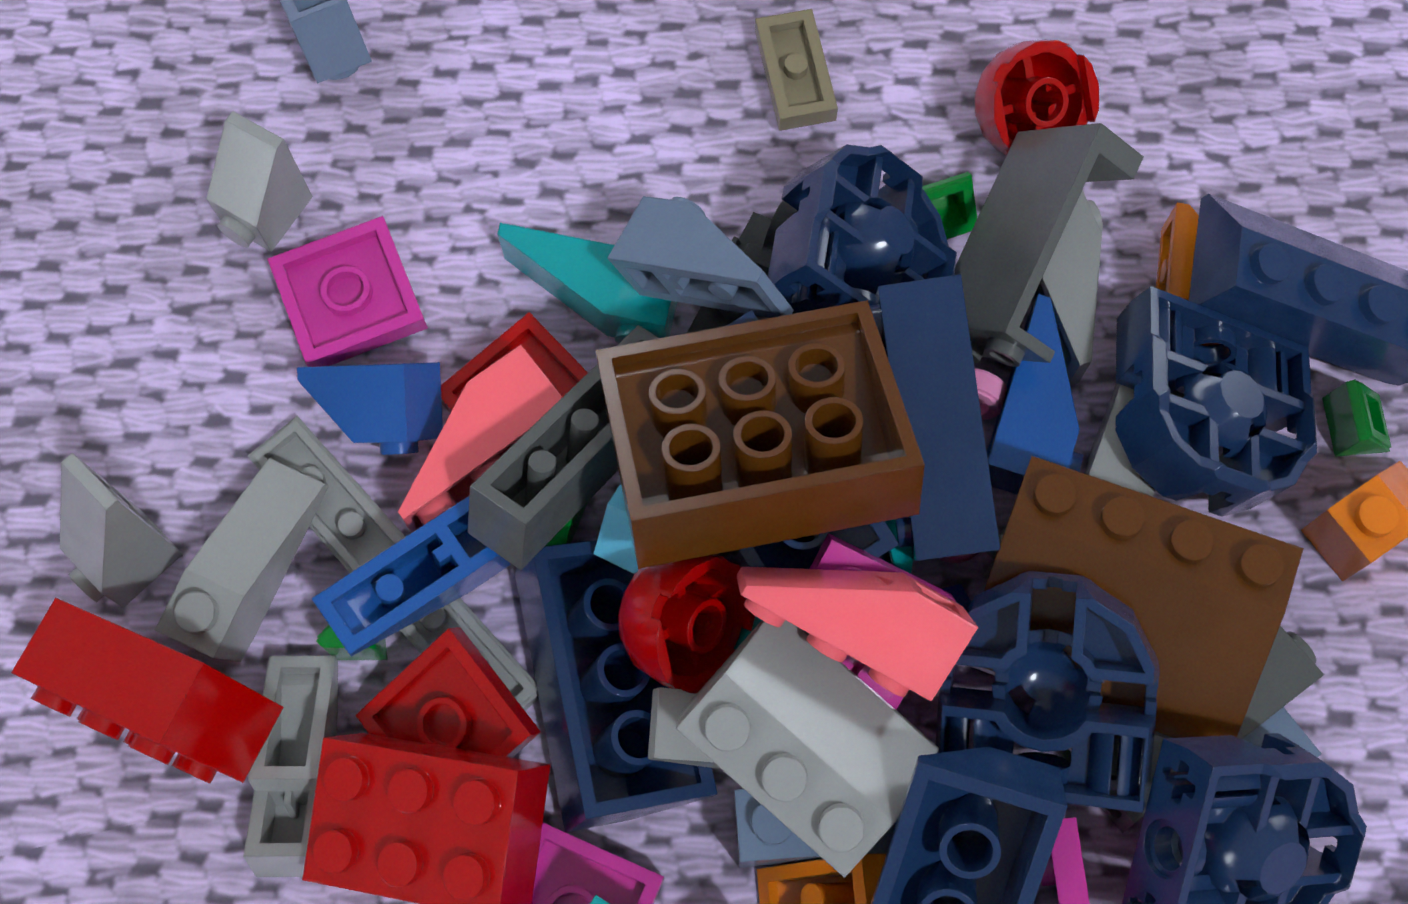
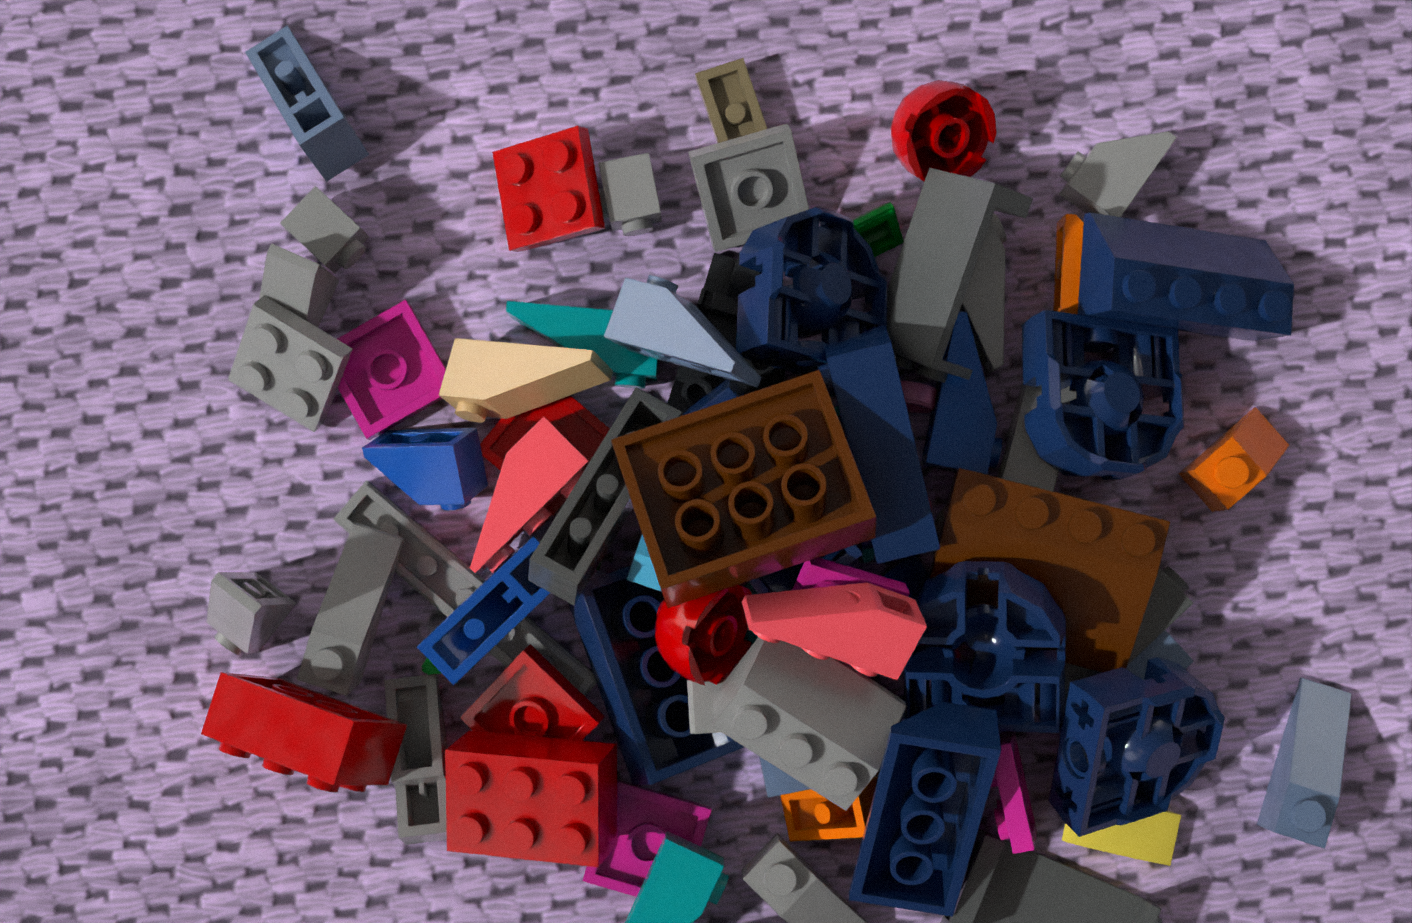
camera: 10 degrees left, 15 degrees up
(231, 266) = (289, 363): none -> light grey plate
(308, 127) = (326, 231): none -> light grey brick
(496, 306) = (514, 377): none -> tan slope
(570, 117) = (548, 189): none -> red plate
(661, 134) = (629, 194): none -> light grey brick
(796, 125) = (748, 184): none -> light grey plate
(1236, 166) = (1113, 172): none -> light grey slope
(1356, 420) = (1221, 378): green slope -> none

